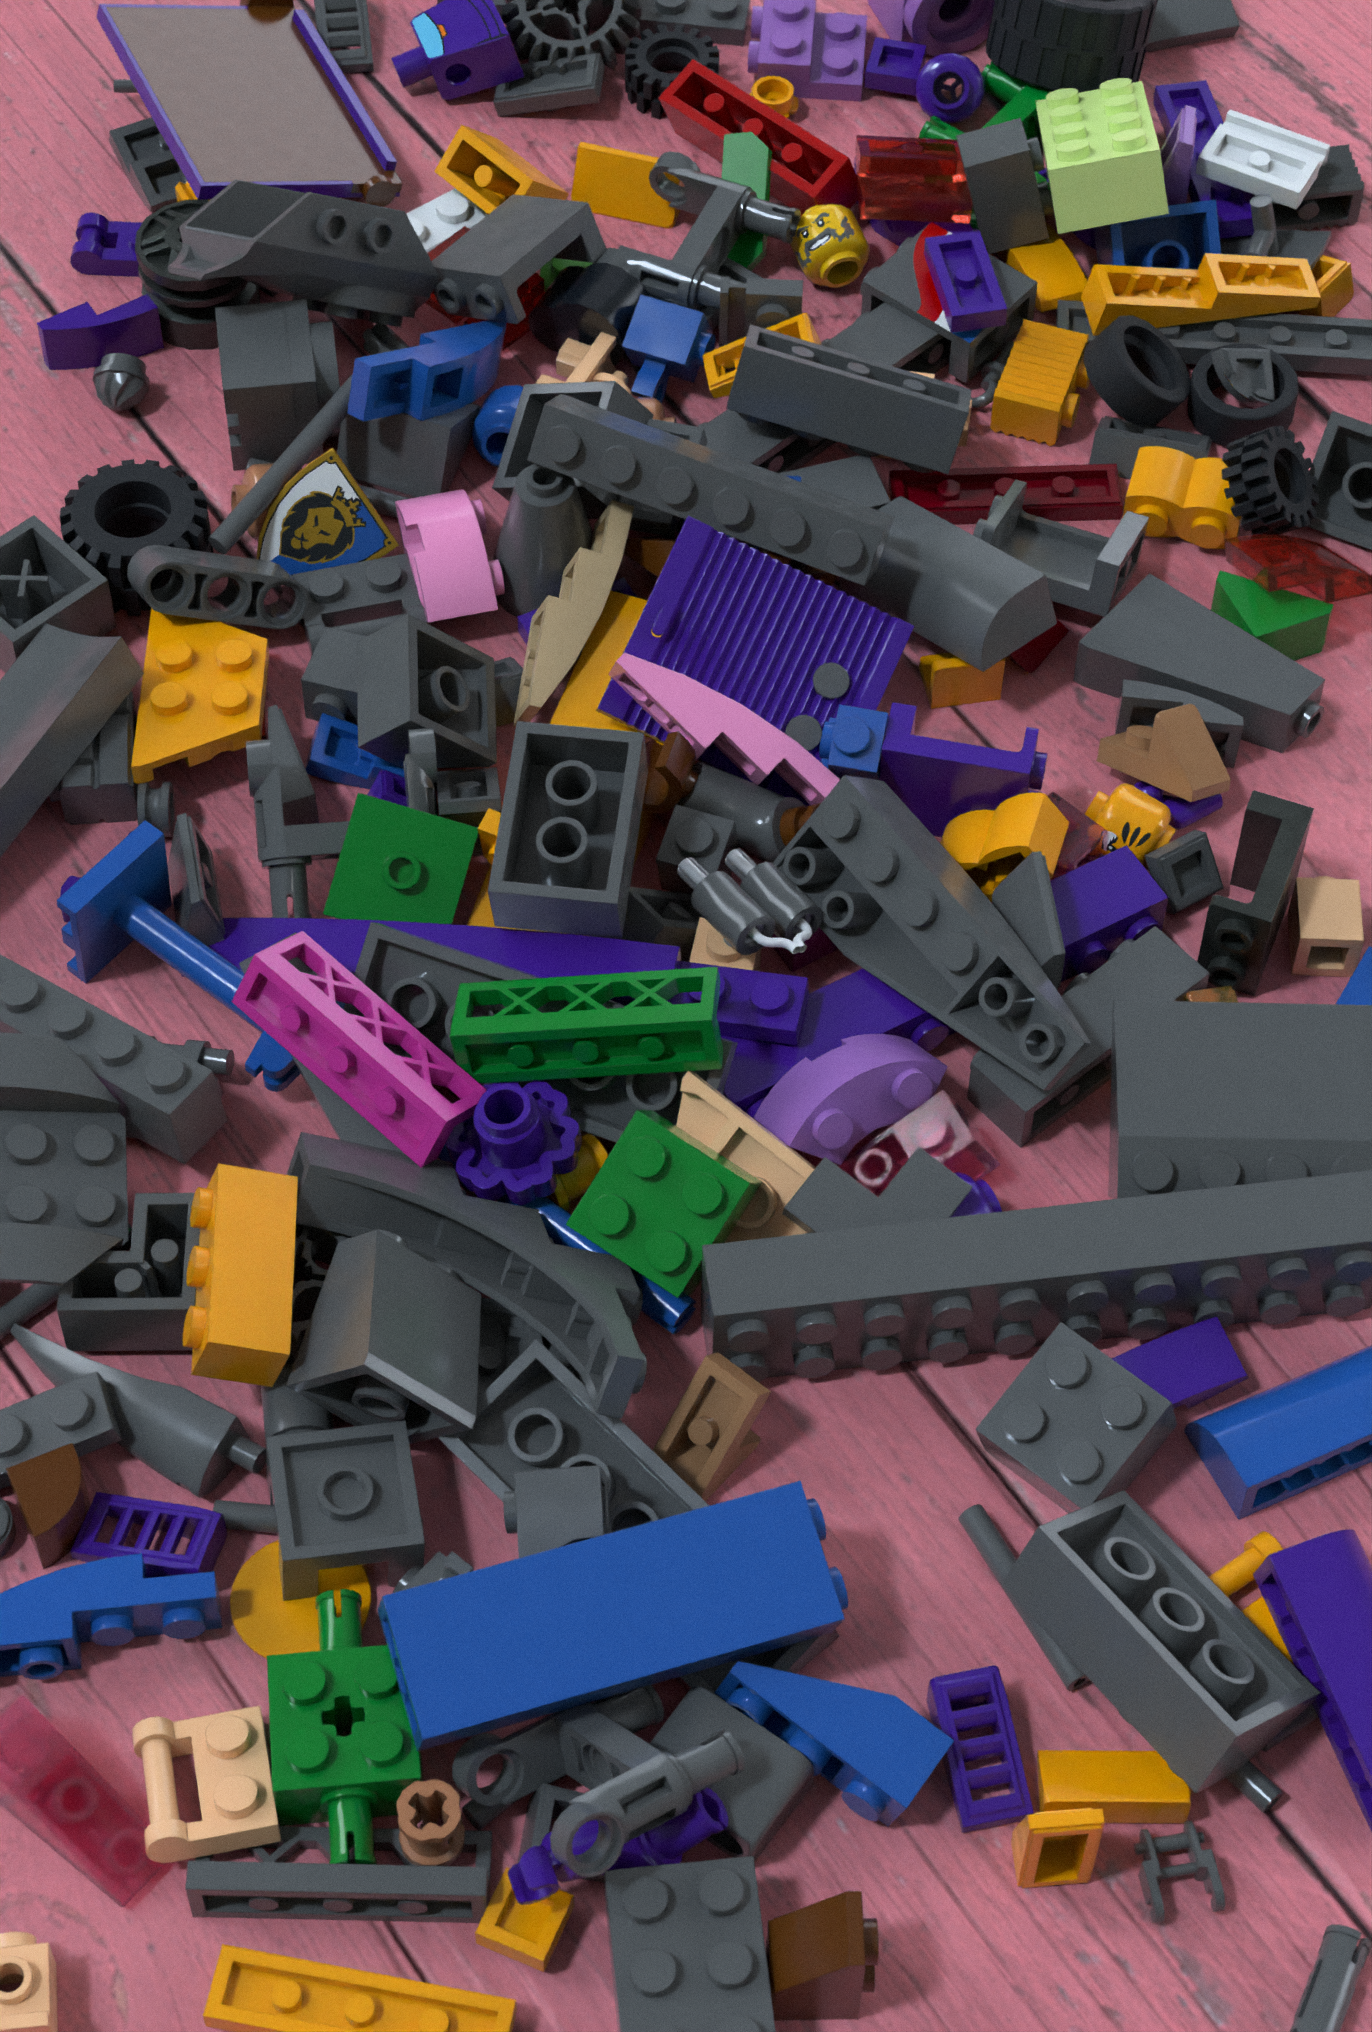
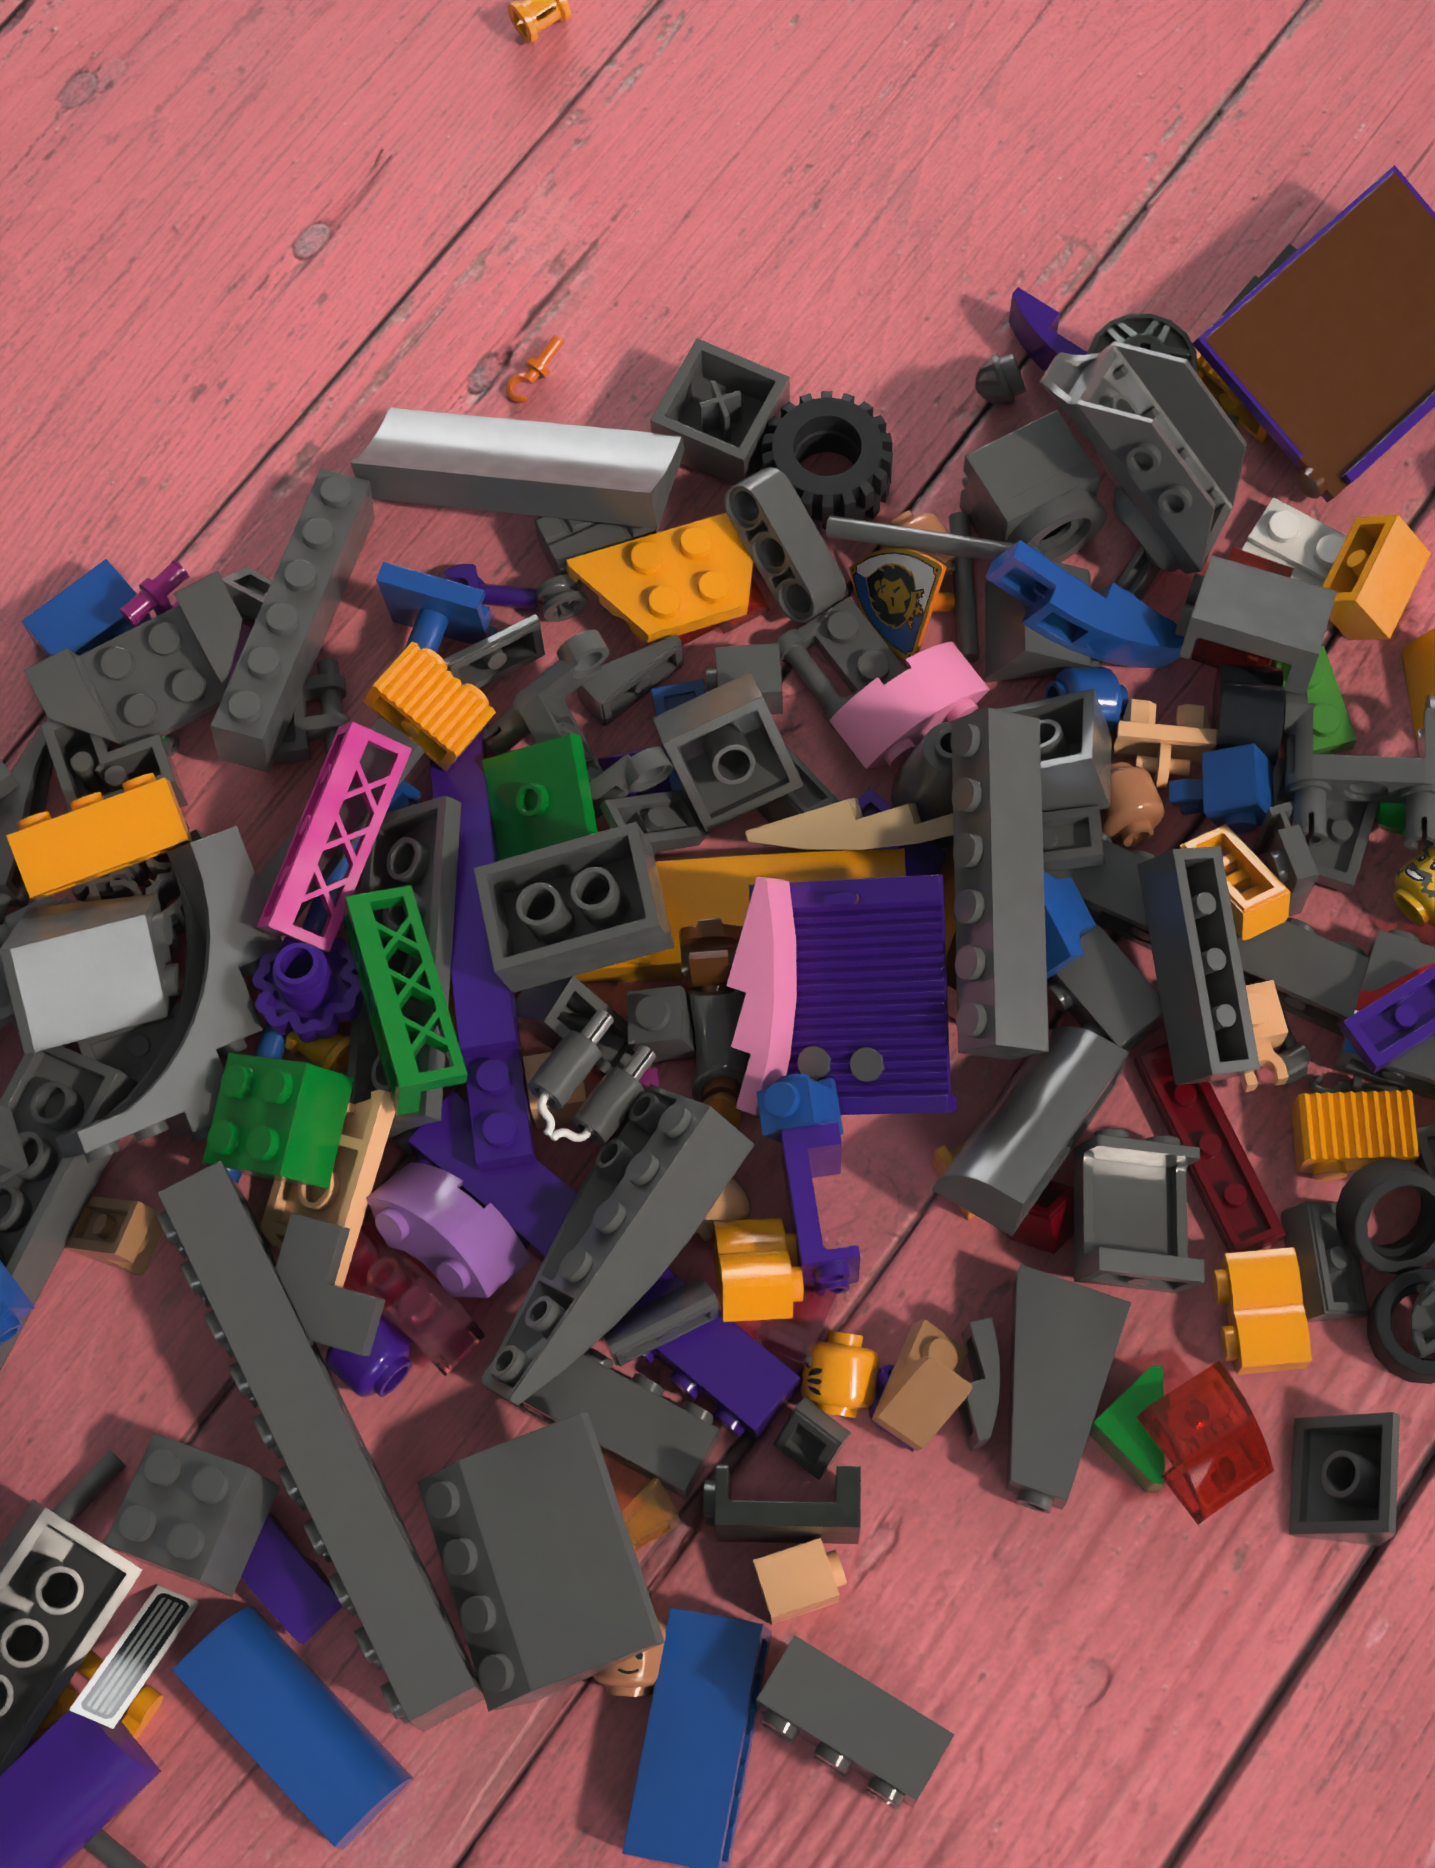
camera: 75 degrees right, 15 degrees up
(105, 247) = (1172, 286): dark purple plate -> none
(239, 918) = (430, 704): none -> light orange brick
(1224, 1519) = (134, 1657): none -> sticker
(1270, 482) = (1296, 1406): black tyre -> none

